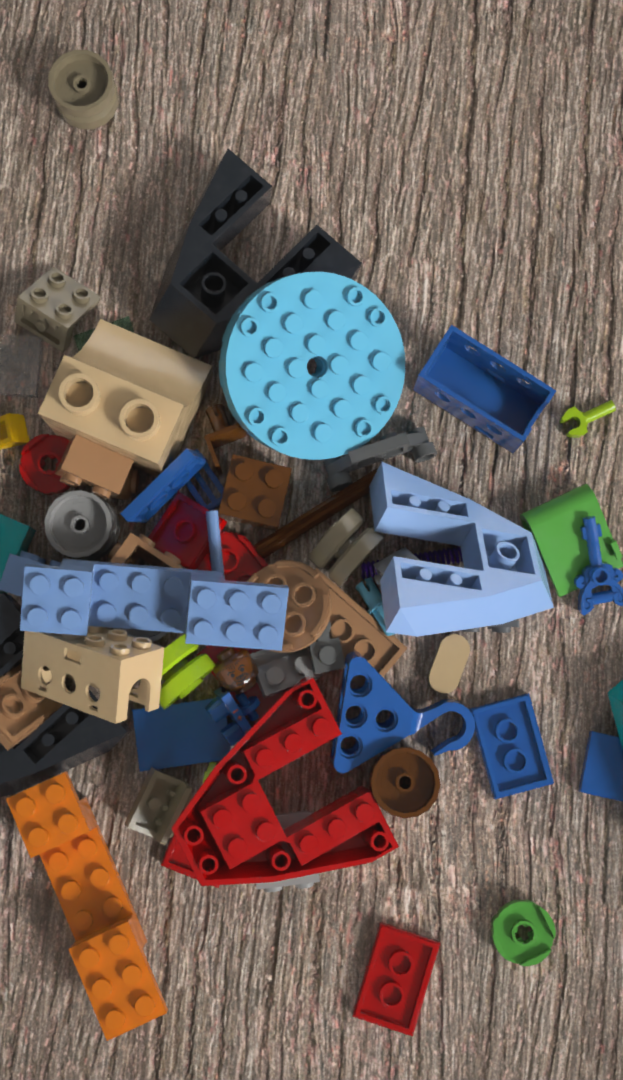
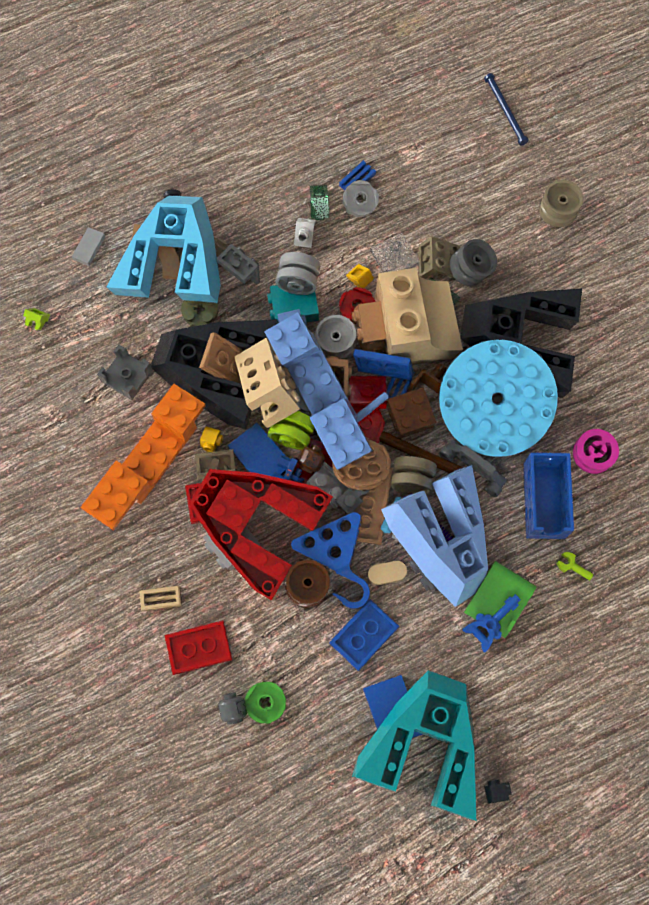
camera: 60 degrees right, 10 degrees down
(93, 266) = (473, 262): none -> dark grey wheel
(116, 789) = (210, 439): none -> yellow plate
(308, 966) = (162, 598): none -> tan tile
(457, 268) = (603, 443): none -> dark pink wheel
(506, 982) = (232, 708): none -> dark grey head

